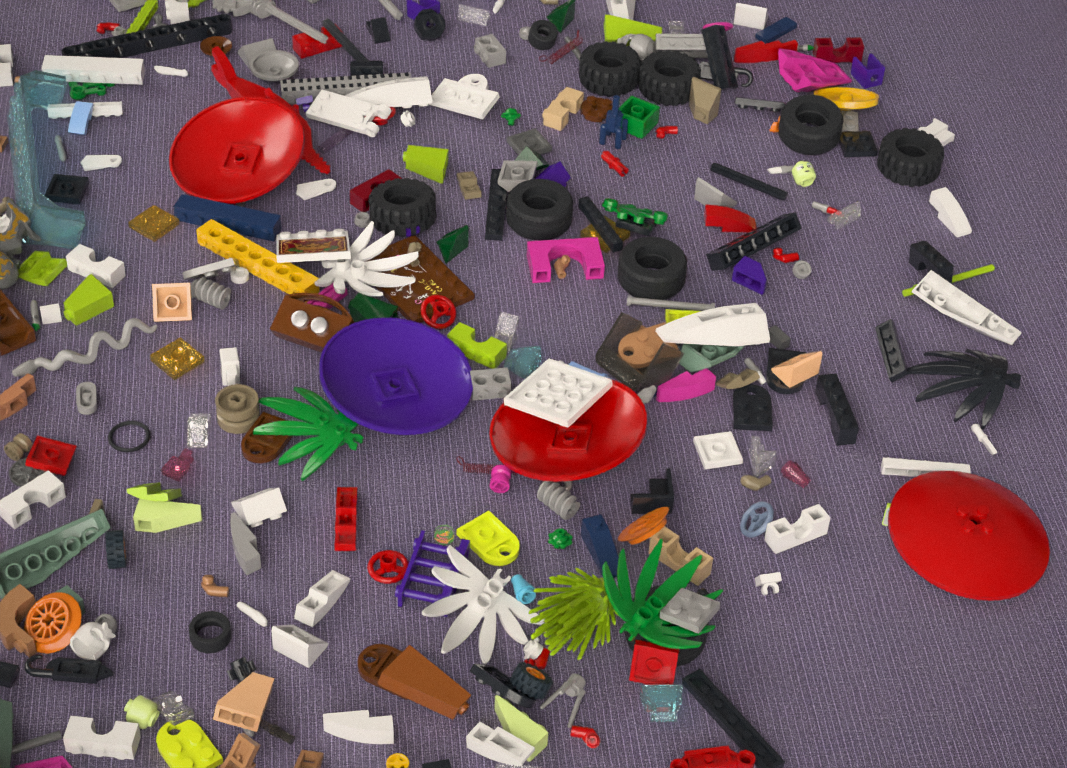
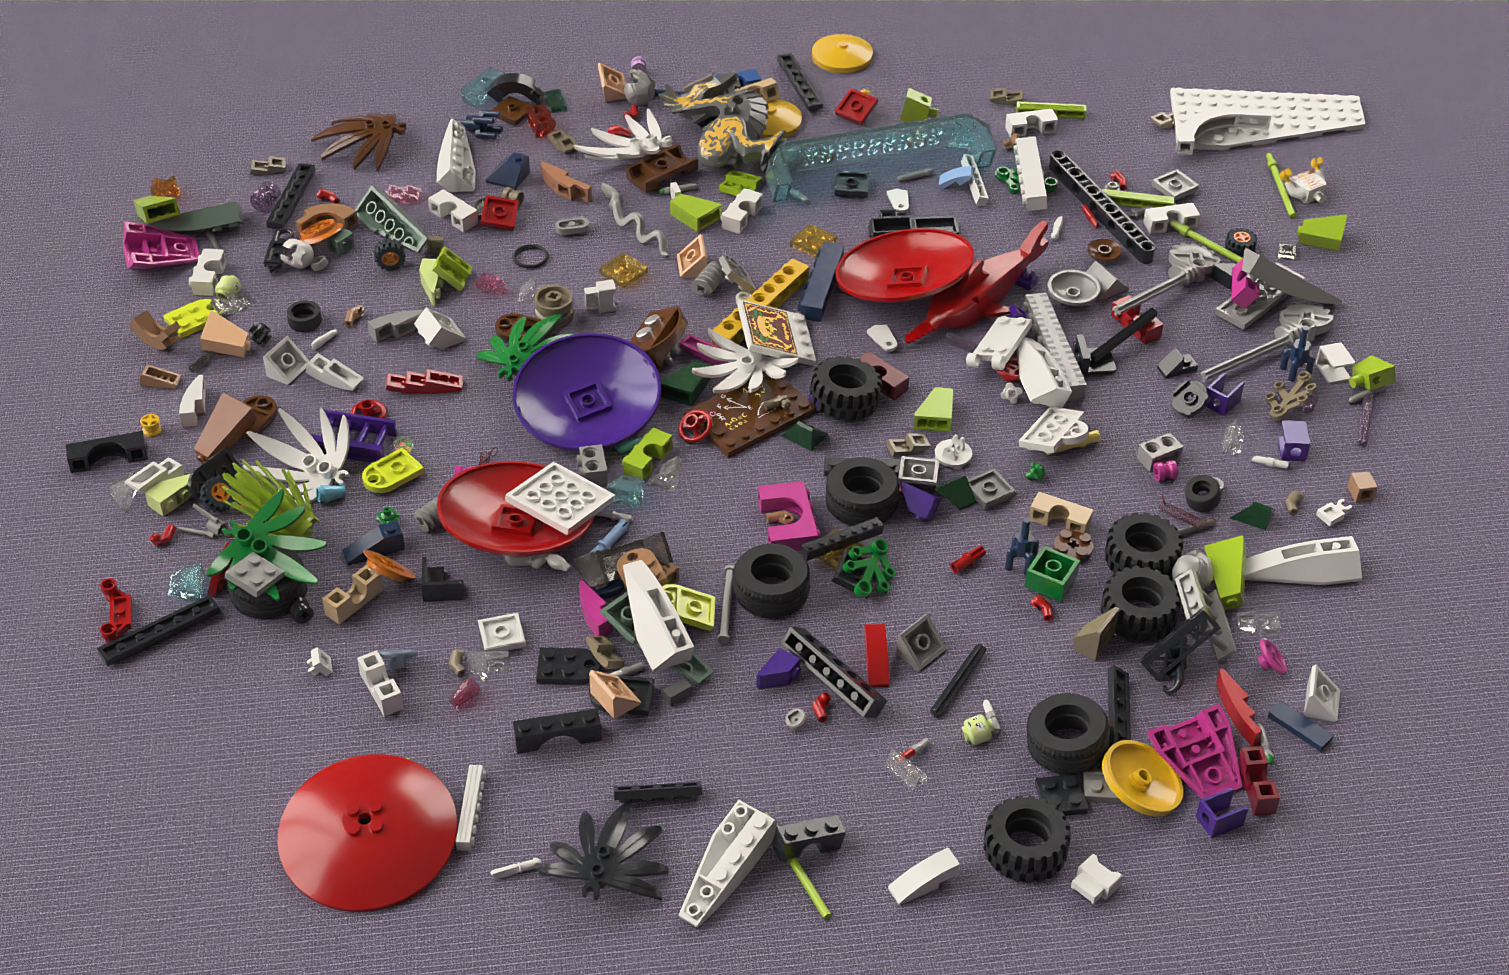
camera: 90 degrees right, 0 degrees up
(151, 157) = (883, 225): none -> black piece
(158, 51) = (1090, 216): none -> red piece
(481, 160) = (953, 453): none -> white plate
(513, 51) = (1166, 470): none -> dark pink wheel

